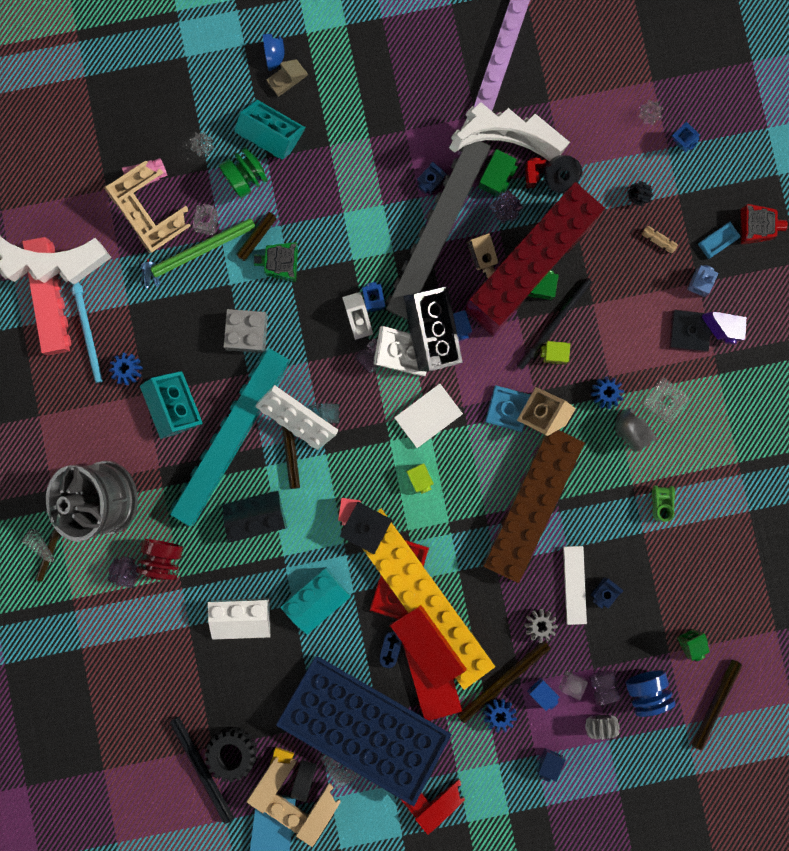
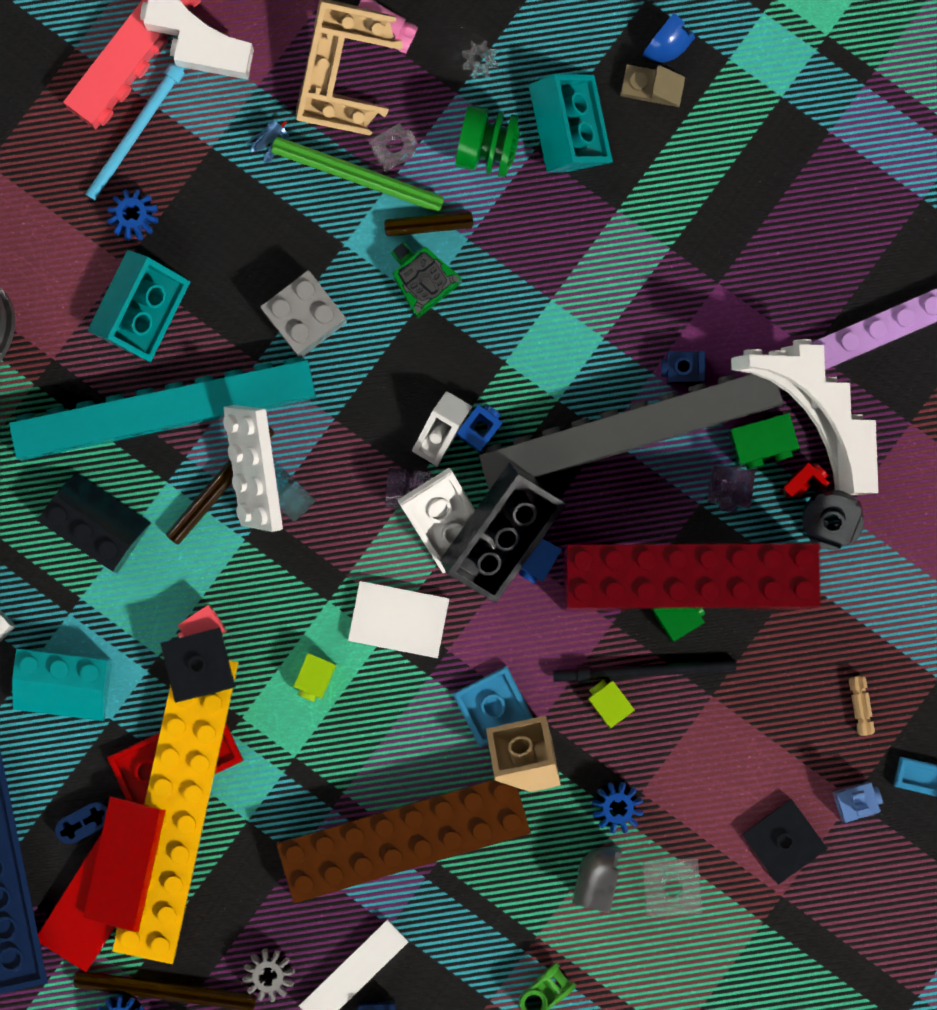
camera: 50 degrees right, 0 degrees up
(483, 246) = (654, 500): tan torso -> none
(640, 193) = (894, 632): black gear -> none
(726, 326) = (825, 879): slope -> none

